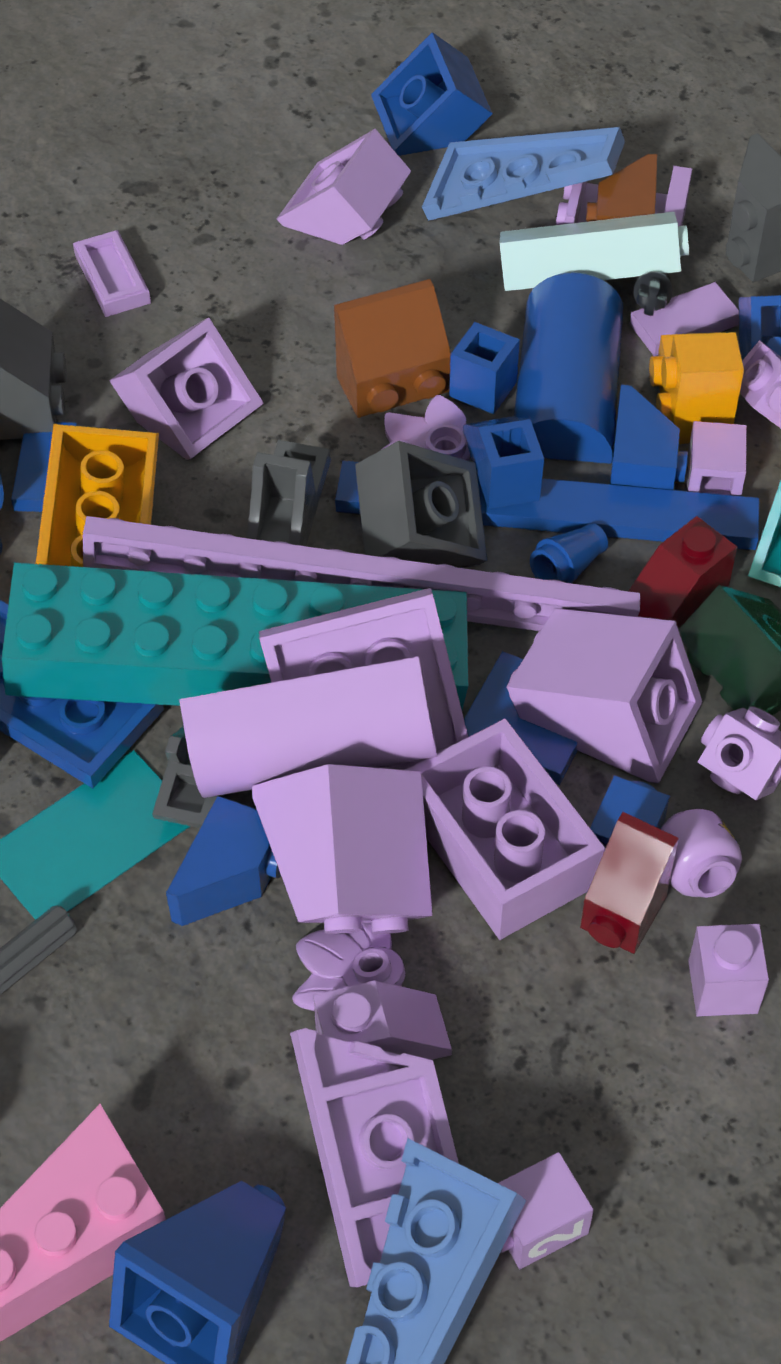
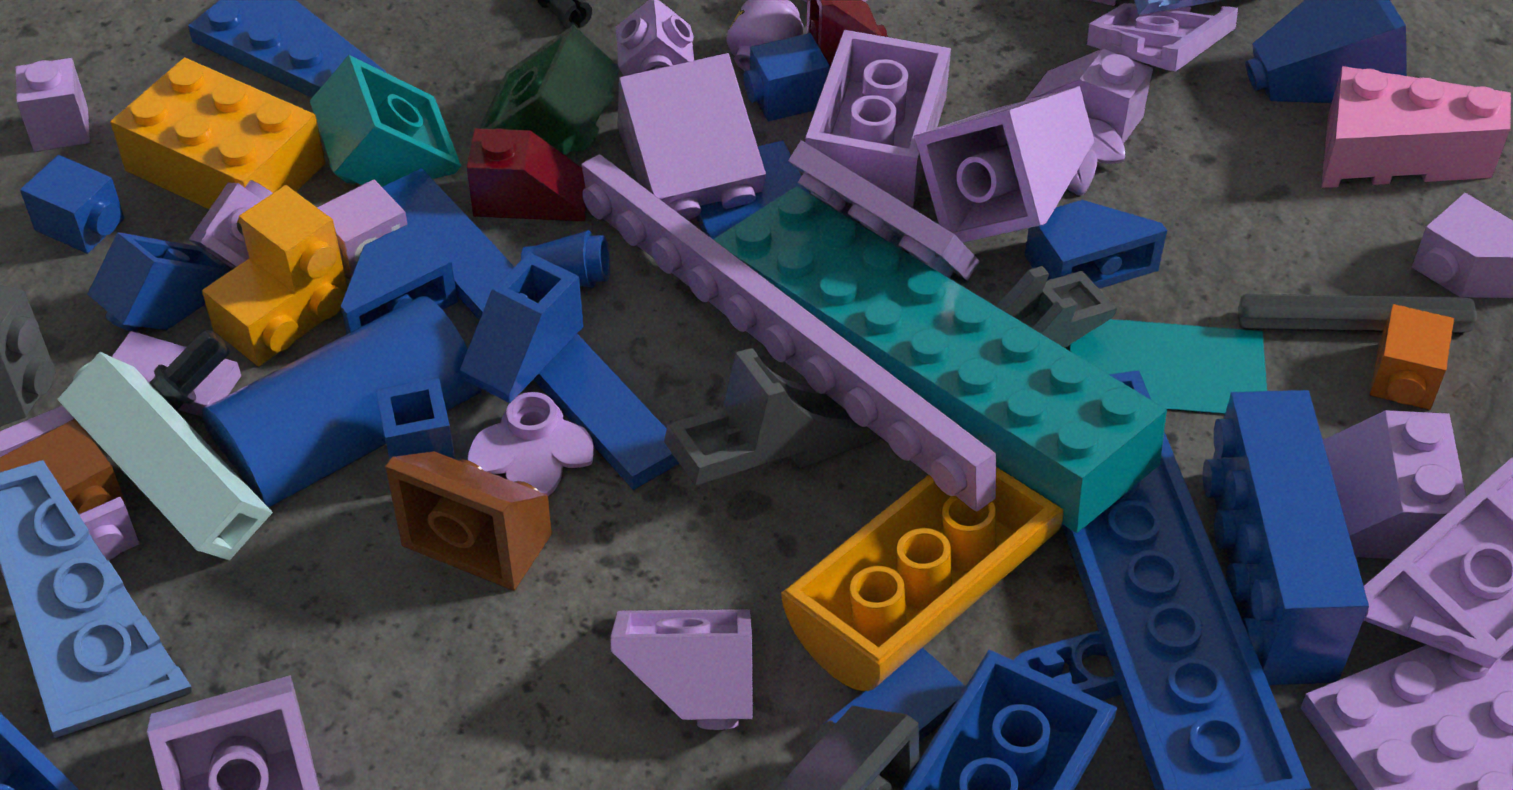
camera: 135 degrees left, 5 degrees down
(289, 726) = (965, 198): lavender brick -> none
(420, 506) = (649, 357): dark grey slope -> none

